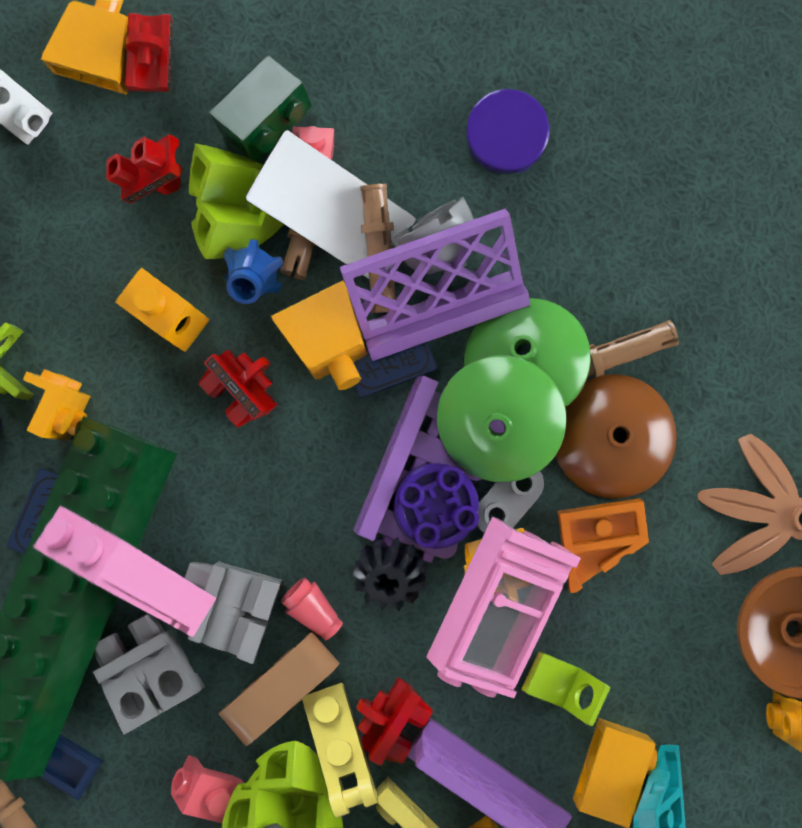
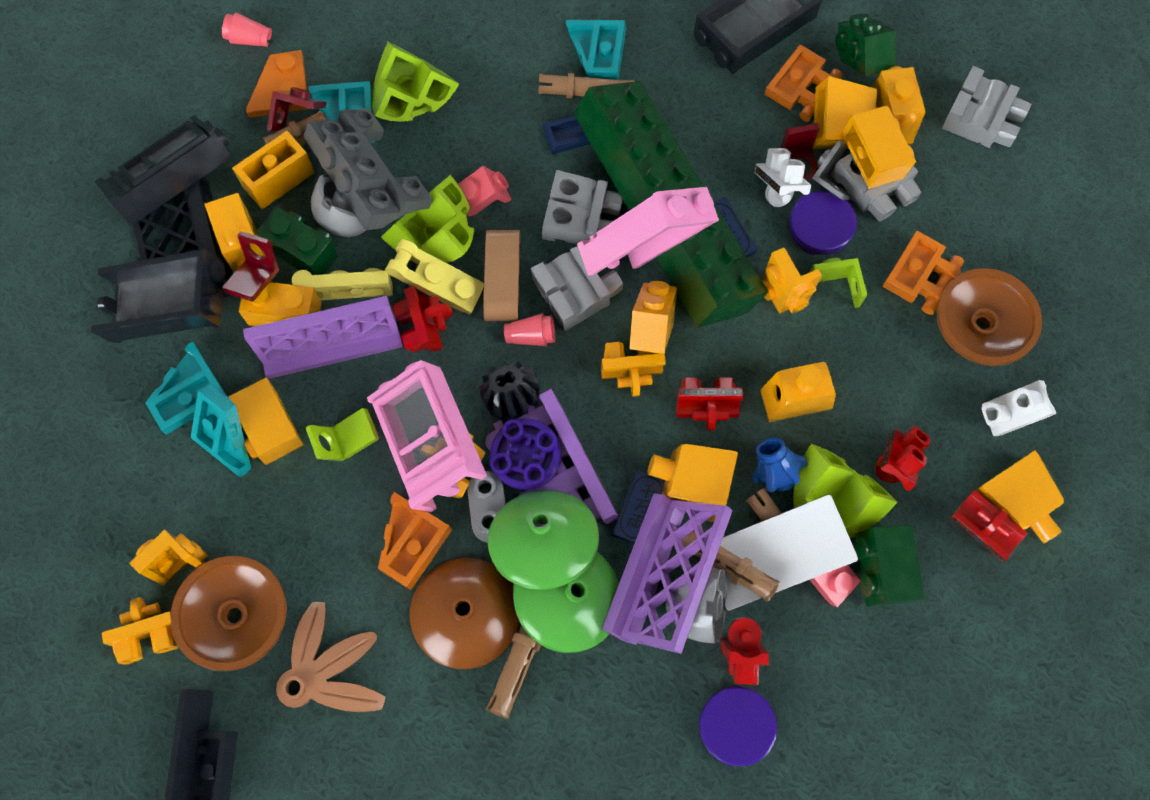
camera: 130 degrees right, 15 degrees down
(204, 500) = (653, 317): none -> light orange brick
(248, 473) = (630, 367): none -> light orange hips
(447, 167) = (744, 651): none -> red hips

